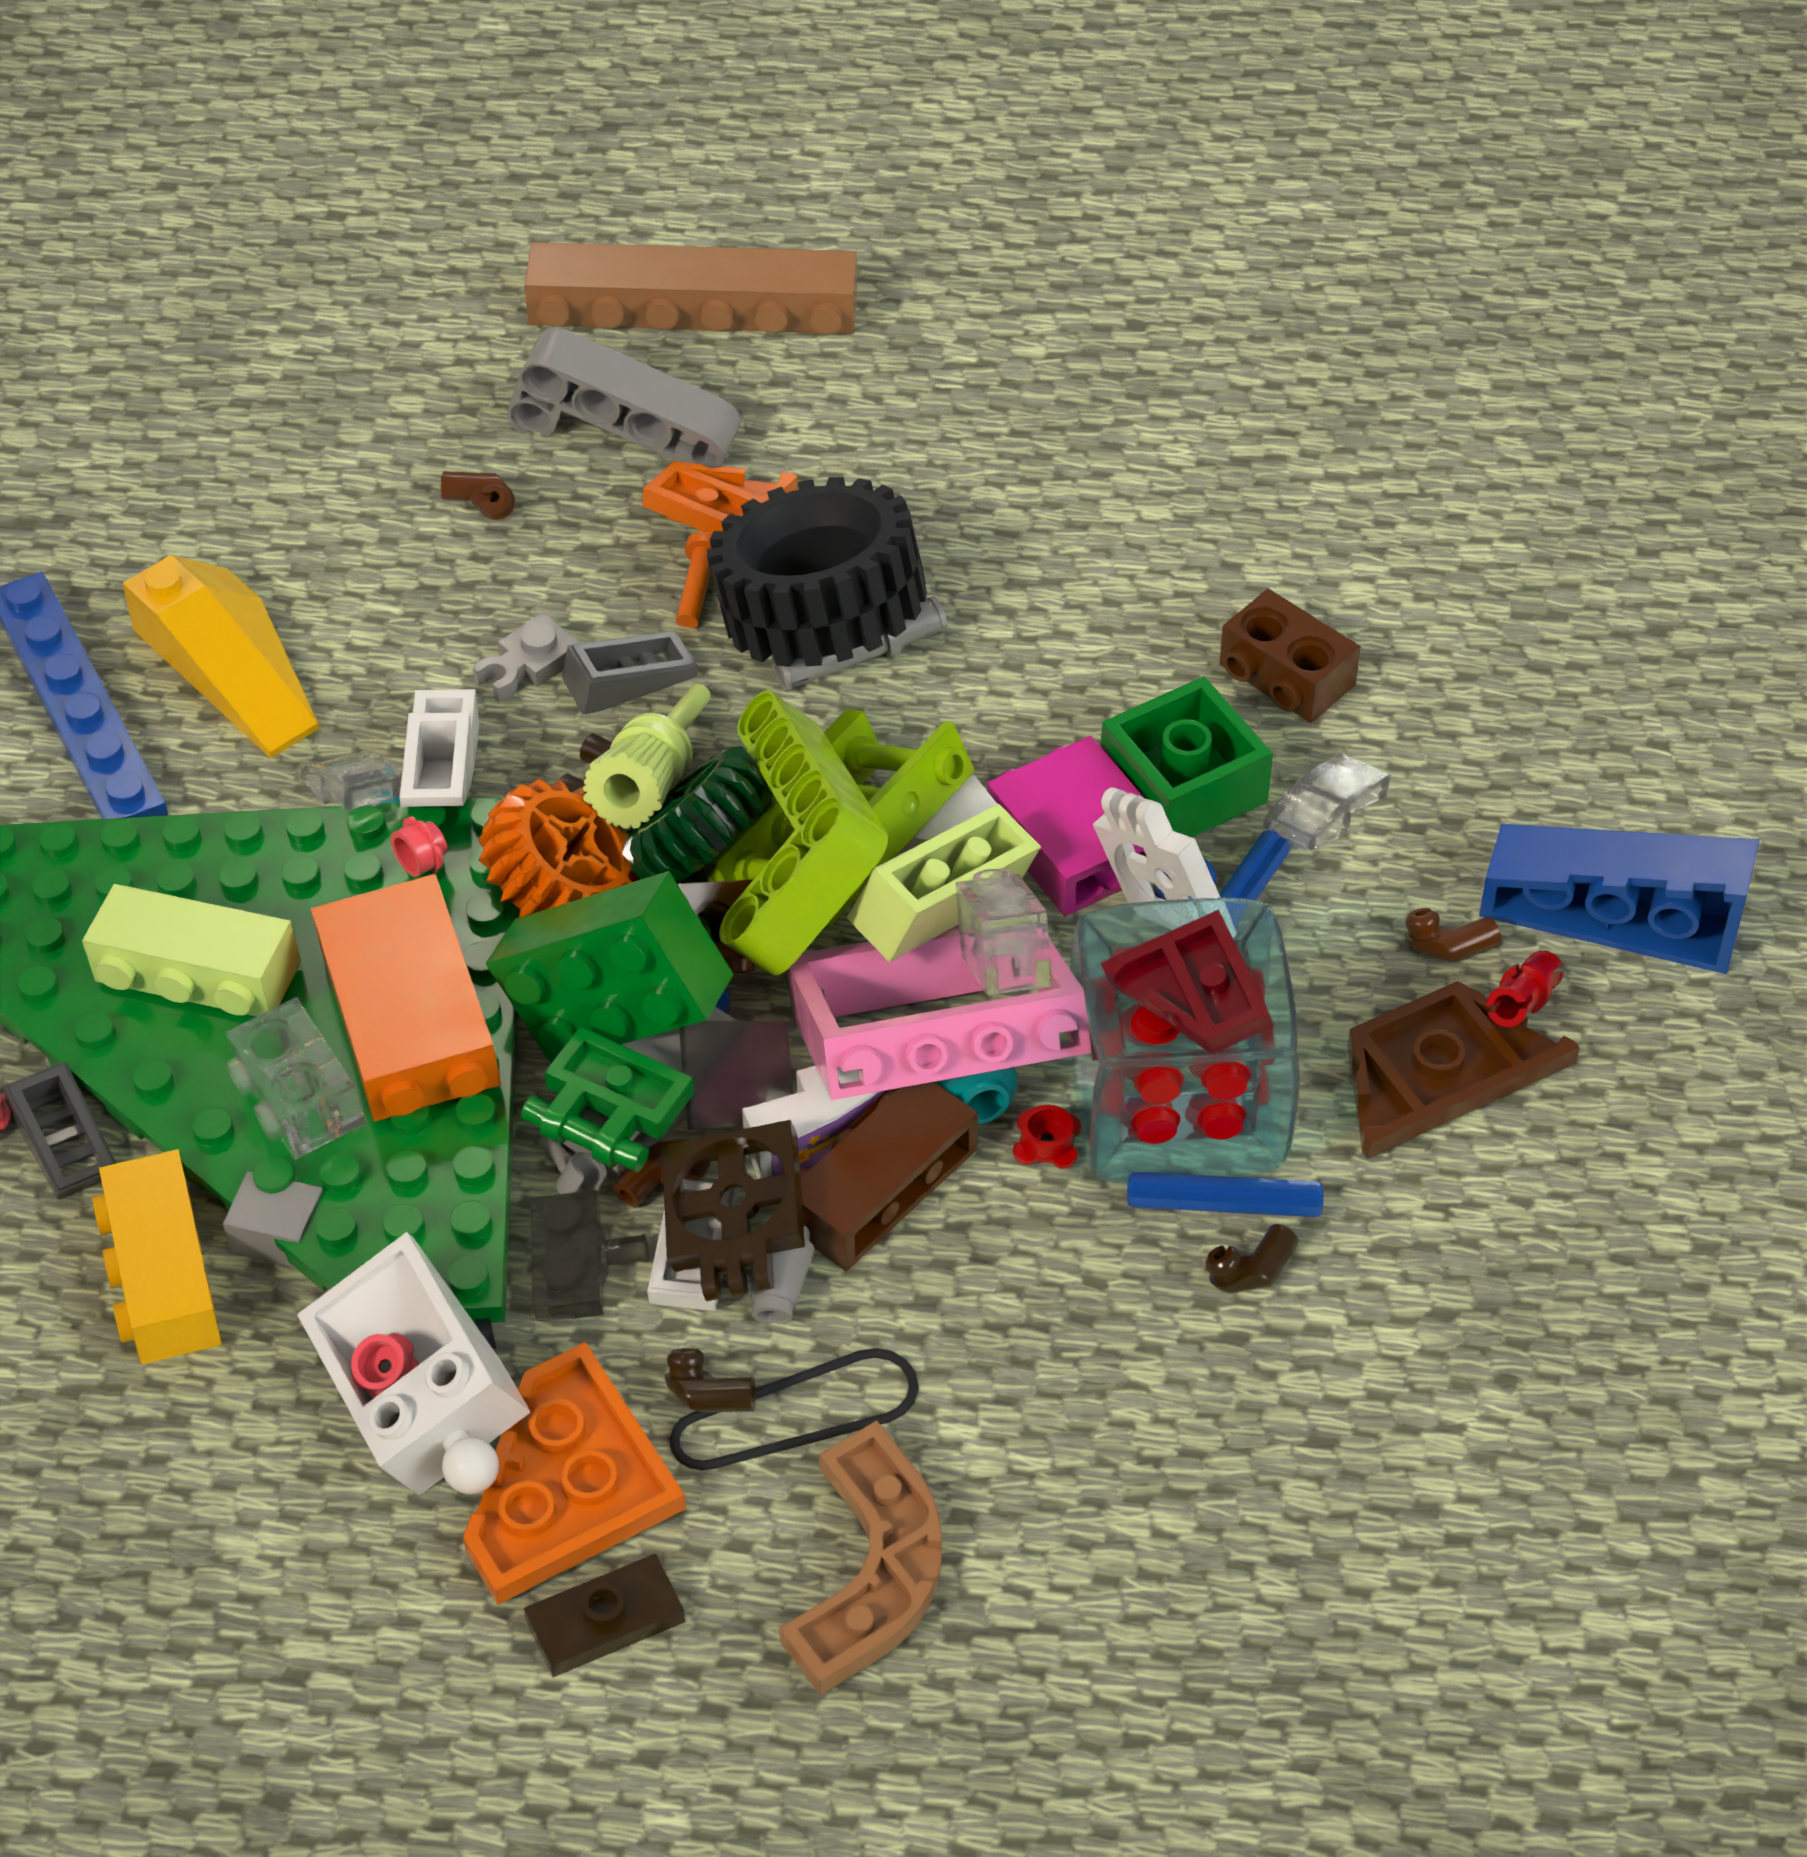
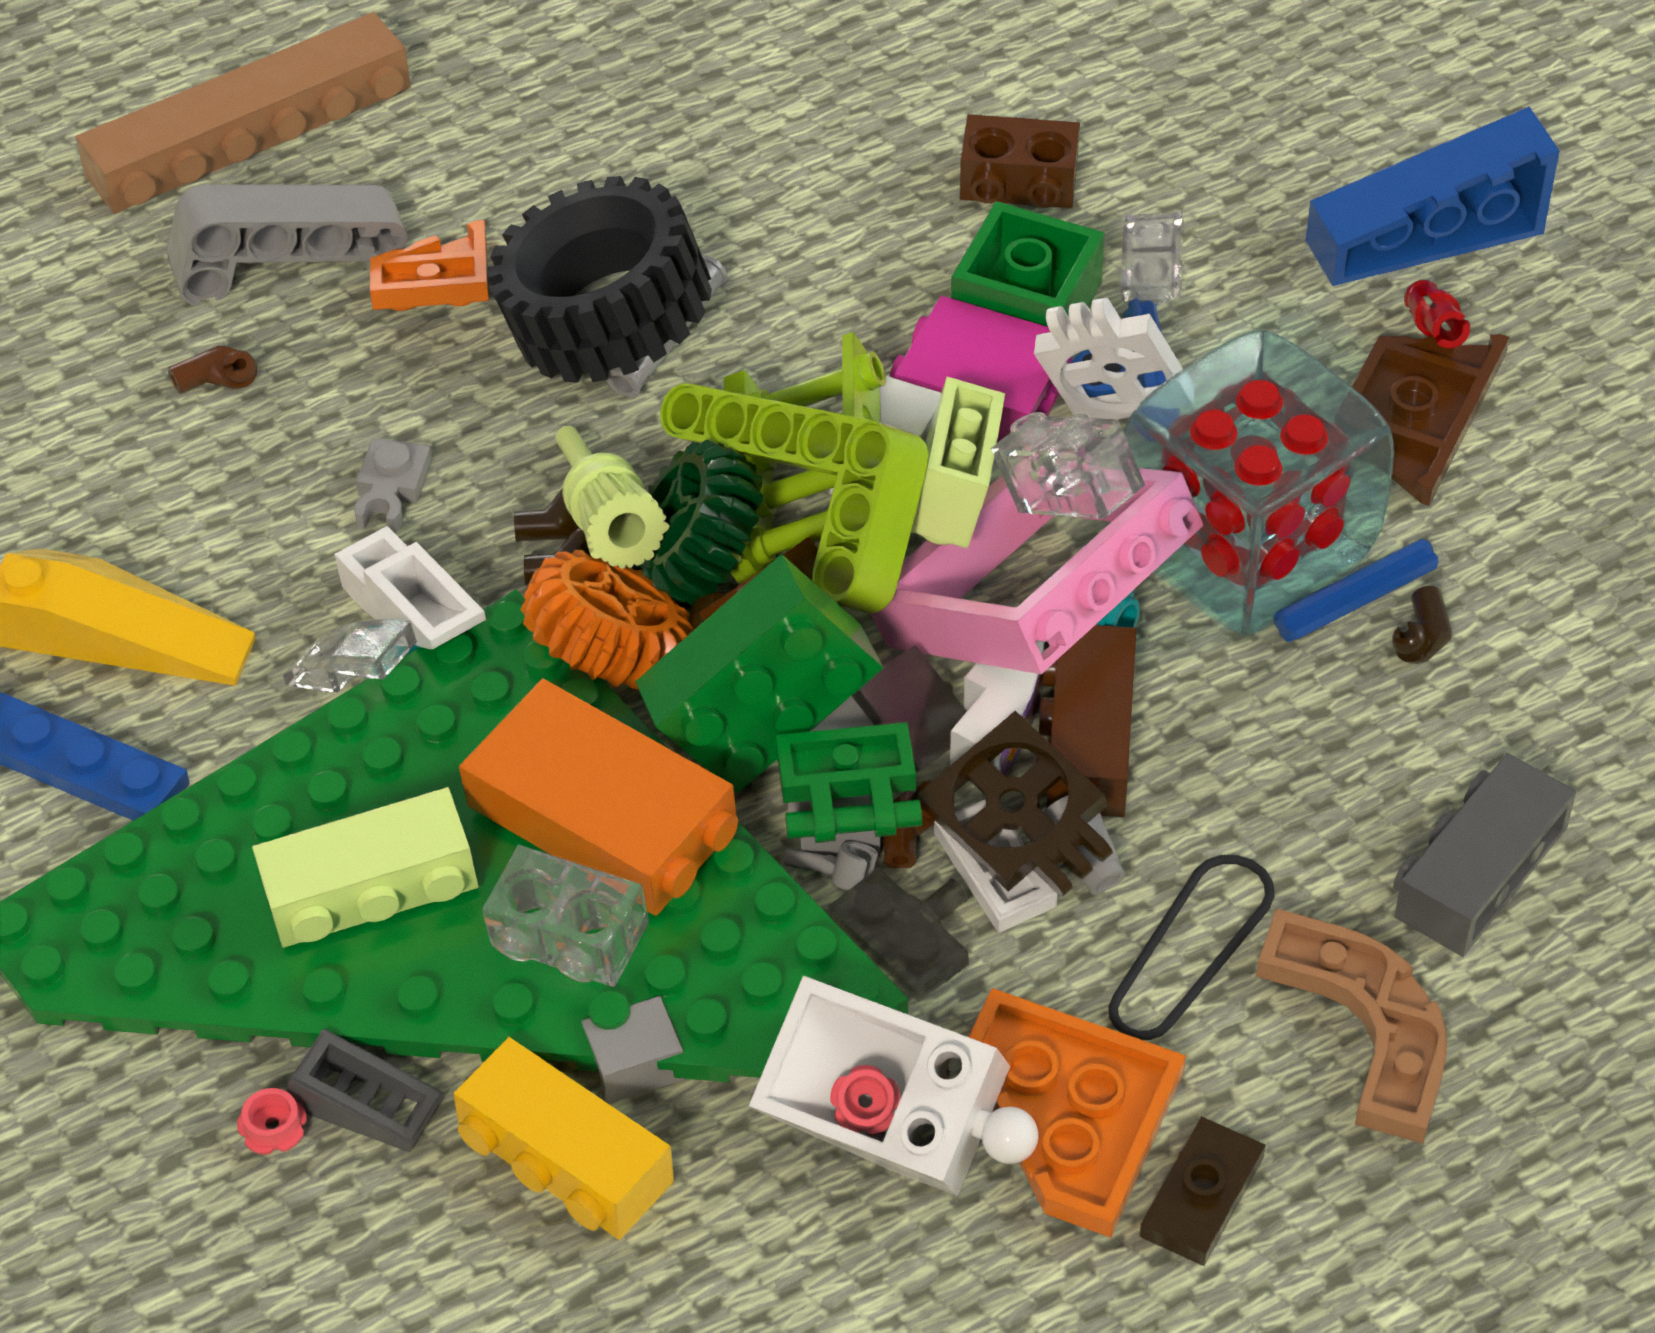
camera: 35 degrees left, 0 degrees up
(419, 846) = (484, 672): coral plate -> none
(596, 683) = (478, 477): dark grey slope -> none
(696, 580) = (463, 319): orange piece -> none
(703, 1391) = (1116, 972): dark brown arm -> none
(1052, 1122) = (1188, 610): red plate -> none
(1102, 1484) = (1482, 853): none -> dark grey brick
(1194, 983) = (1281, 413): dark red wing -> none
(1449, 944) = (1340, 315): reddish brown arm -> none

